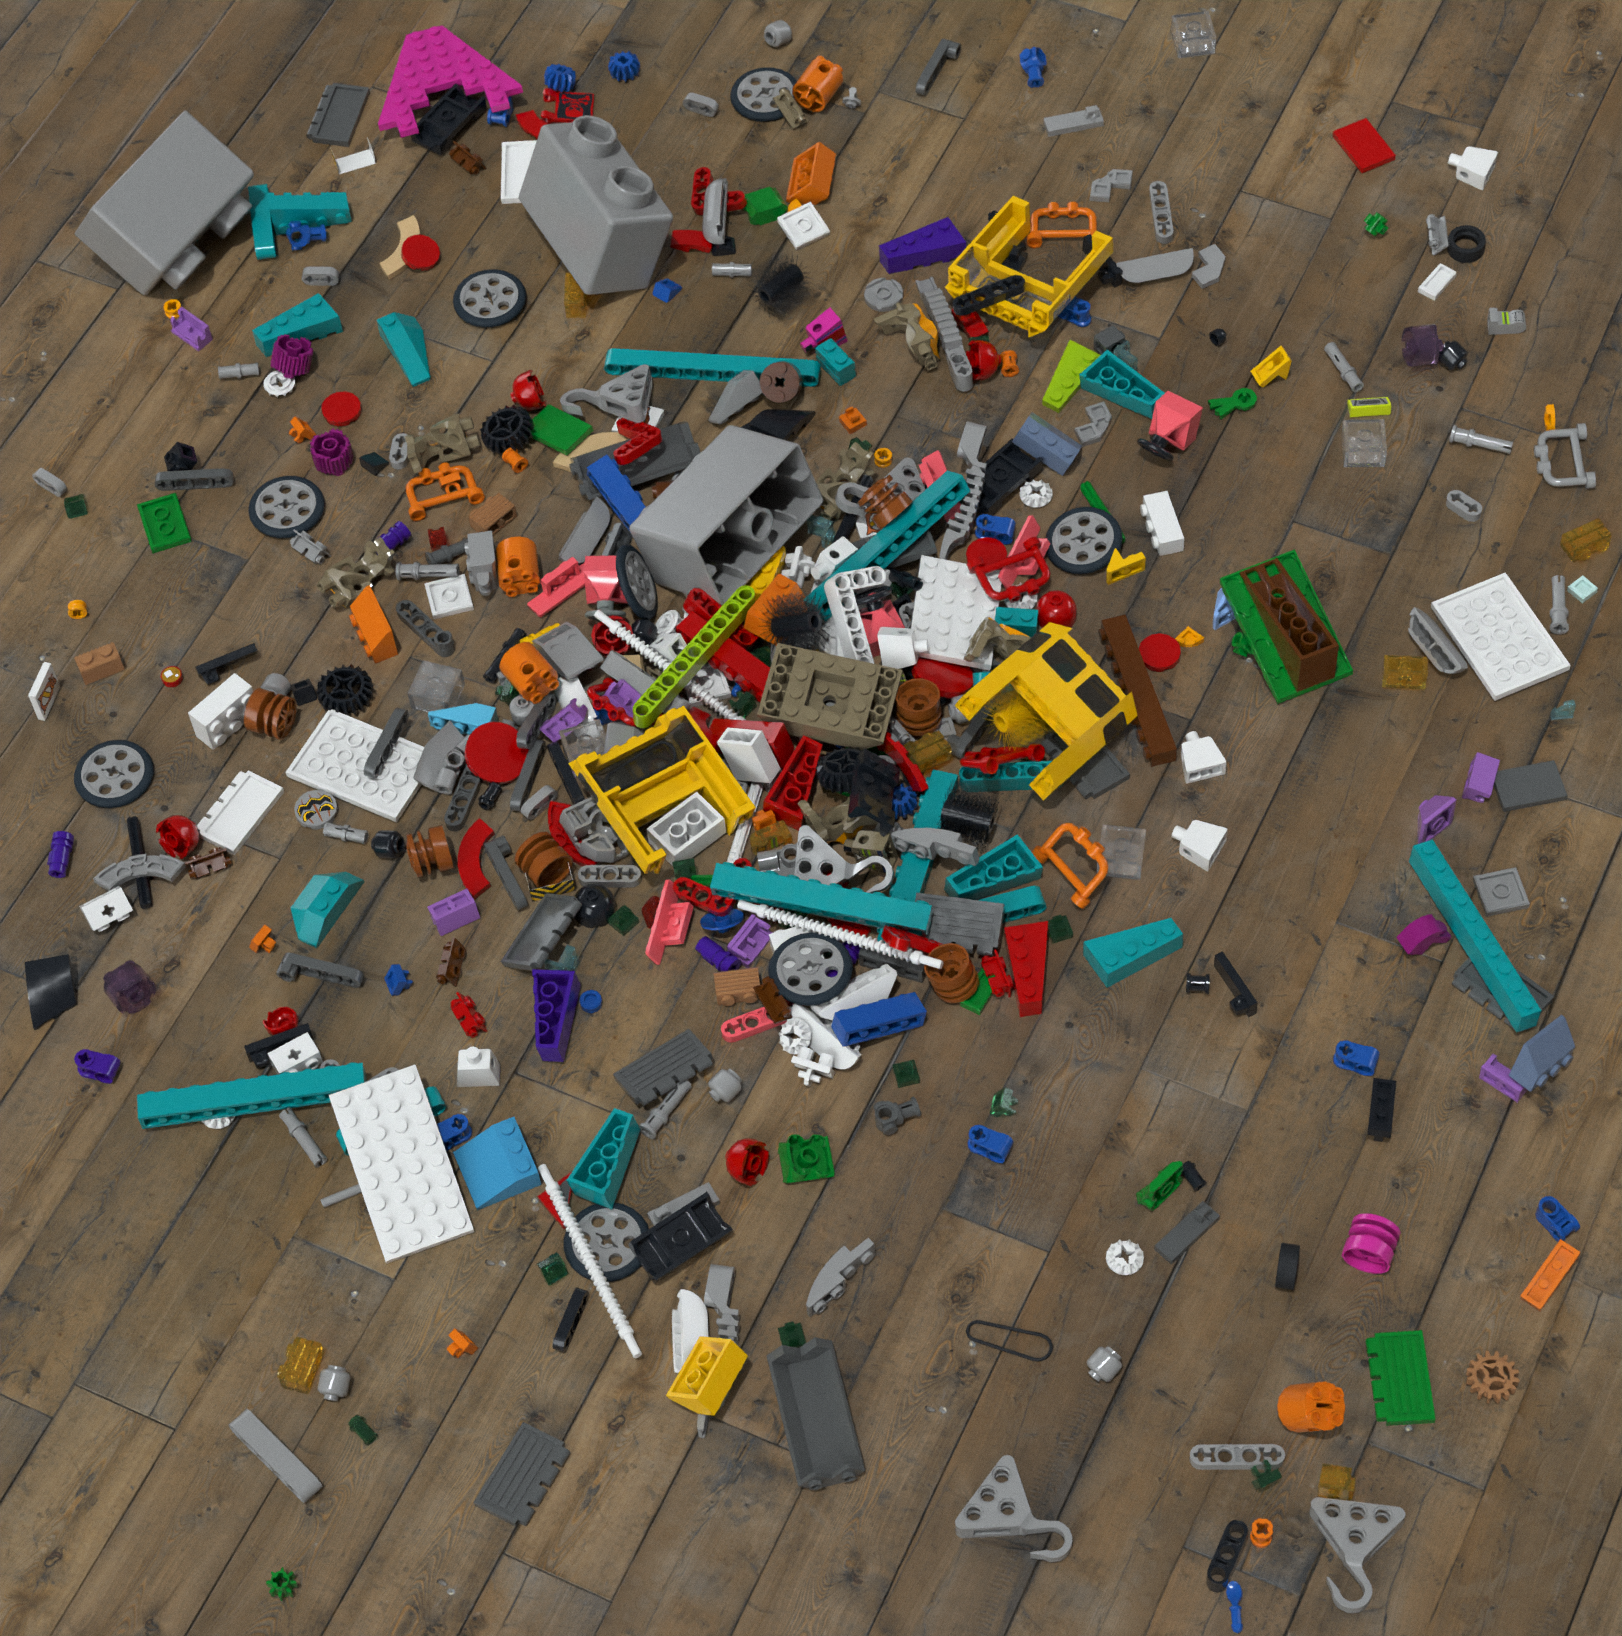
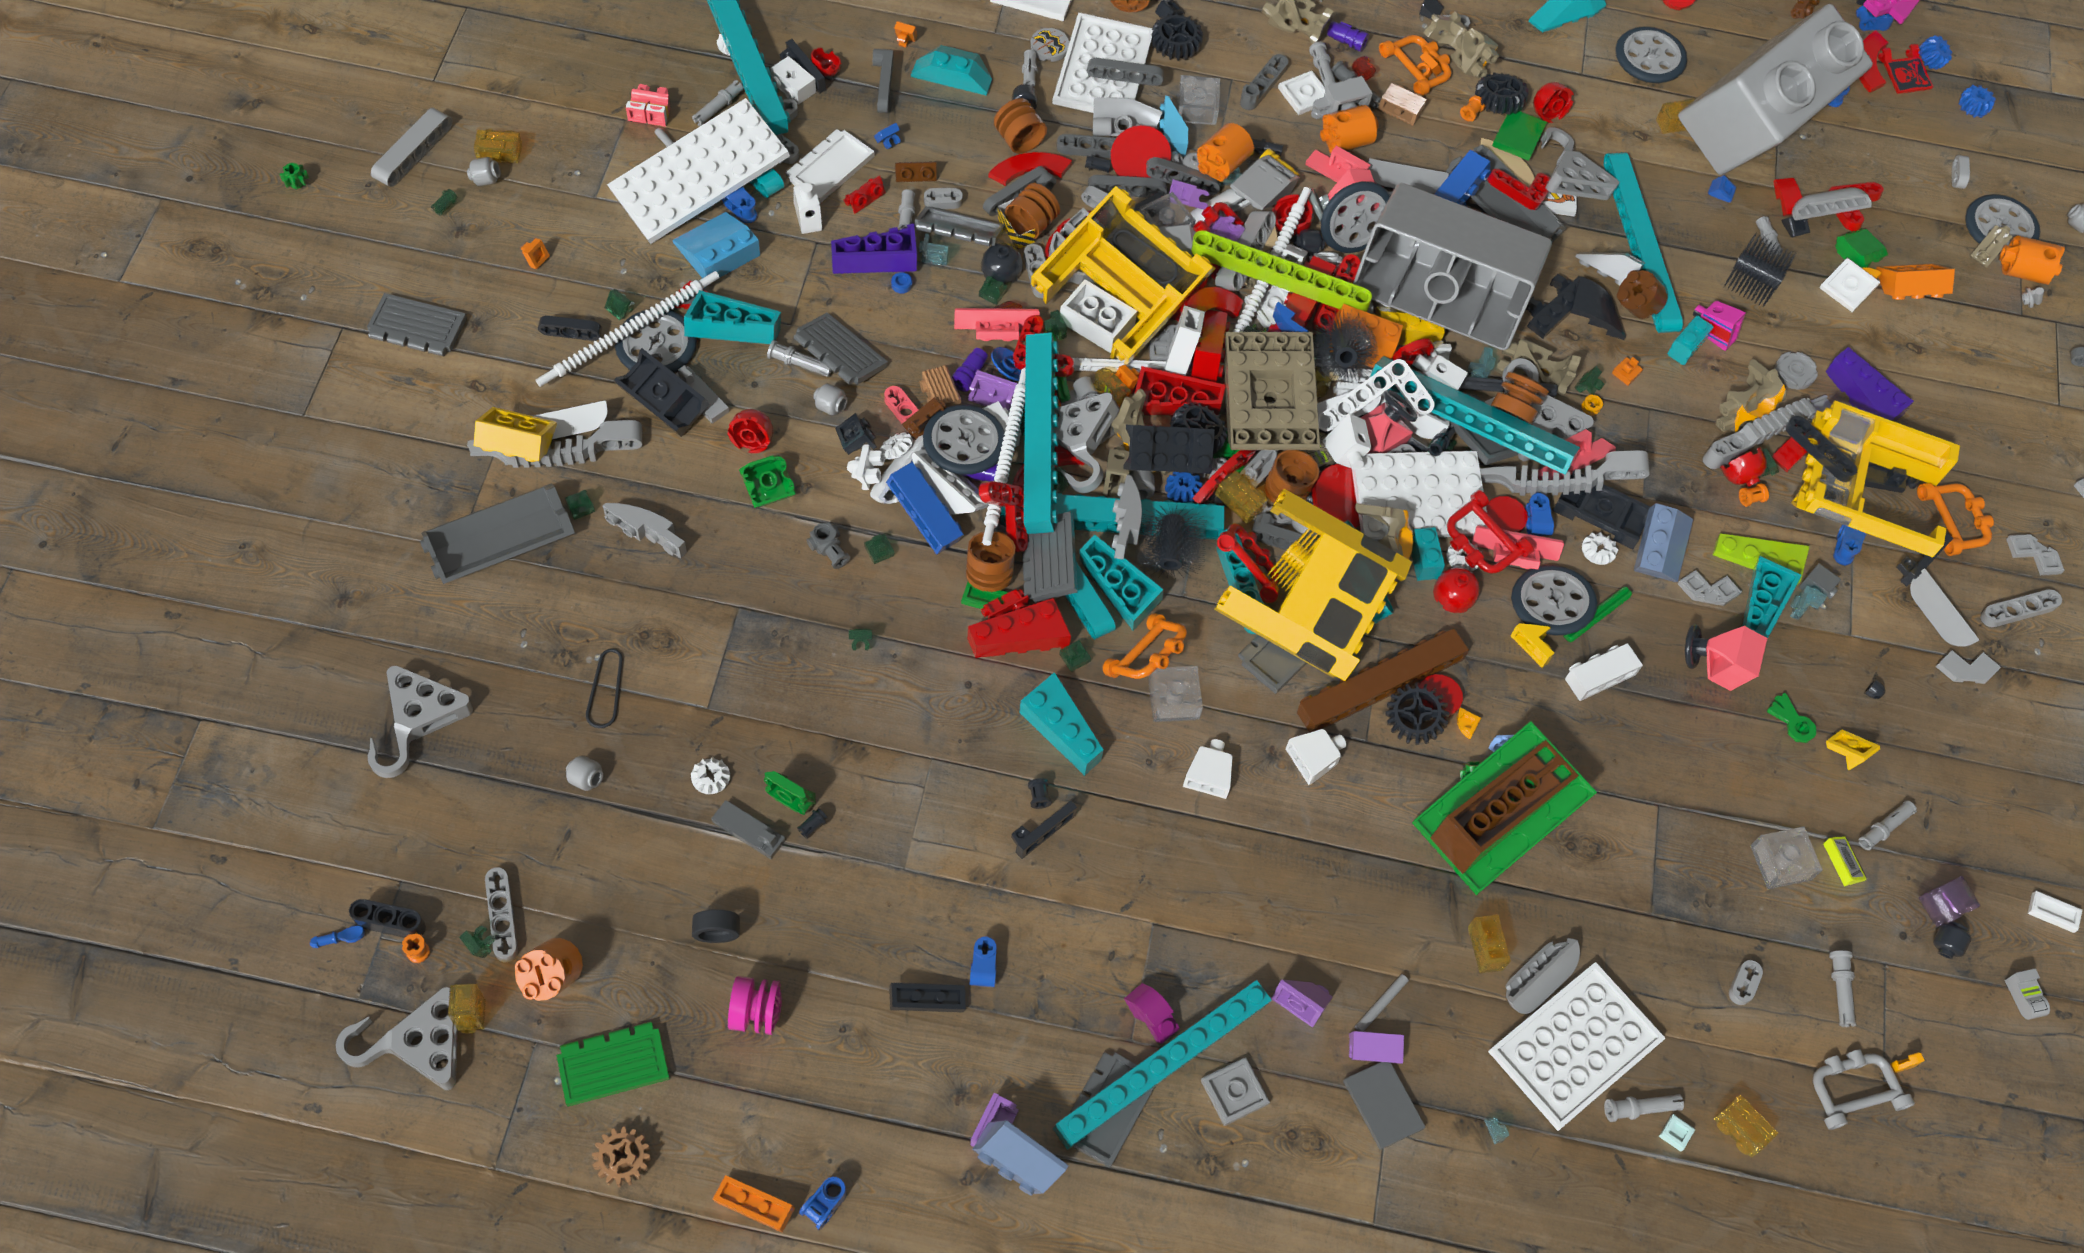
camera: 65 degrees right, 5 degrees up
(289, 1206) = (649, 106): none -> coral hips
(372, 626) = (1249, 41): orange slope -> none
(417, 1041) = (831, 163): none -> white hinge
(453, 912) = (966, 160): medium lavender hinge -> none
(489, 943) = (943, 198): none -> light grey beam
(501, 979) = (906, 208): none -> light grey pin
(751, 666) = (1284, 319): none -> blue slope
(774, 1069) = (855, 433): none -> black bracket
(805, 574) = (1412, 350): none -> red tile
(990, 1143) = (812, 633): blue piece -> none
(1161, 666) = (1426, 713): none -> black gear
(1437, 763) = (1384, 1000): none -> light grey bar

